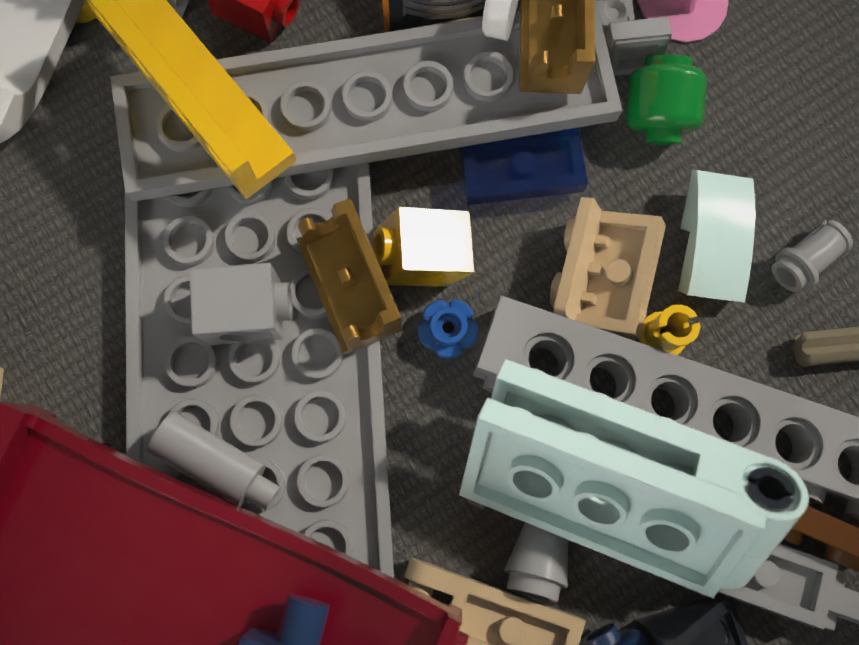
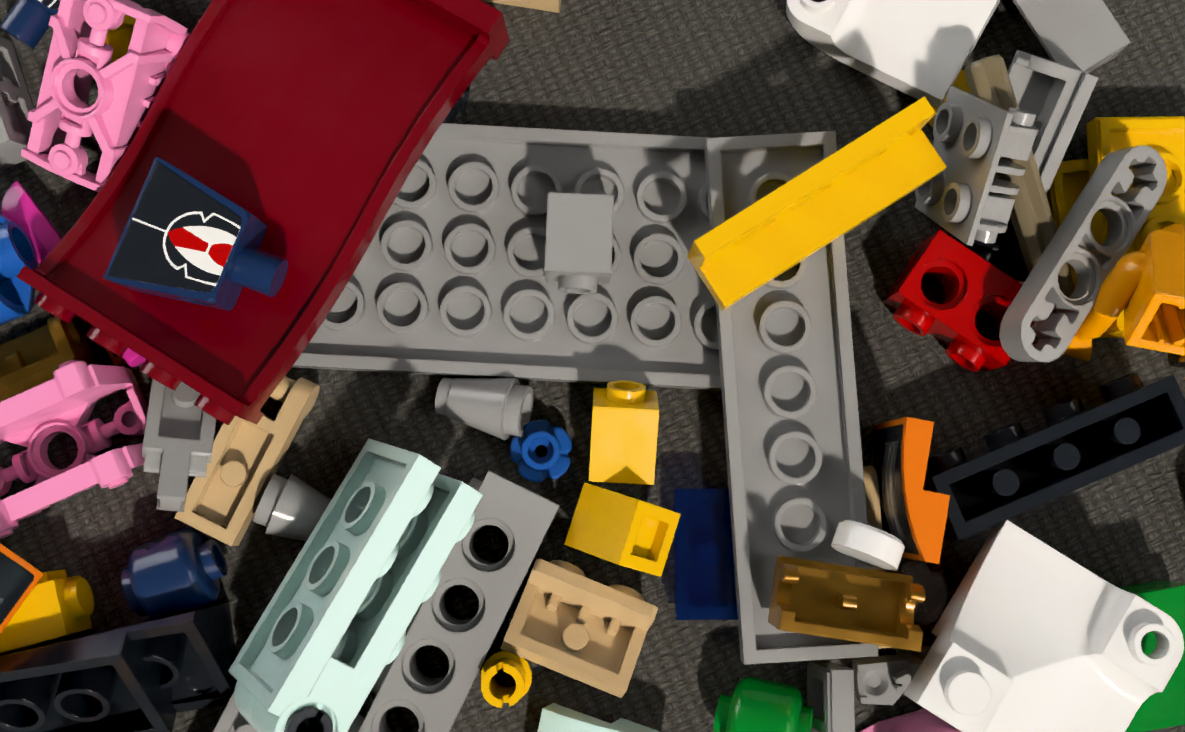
camera: 100 degrees right, 5 degrees up
(211, 462) = (429, 203): light grey cylinder -> none
(348, 278) = (595, 352): pearl gold hinge -> none
(409, 386) = (486, 404): none -> light grey cone
(514, 239) = (622, 529): none -> yellow brick

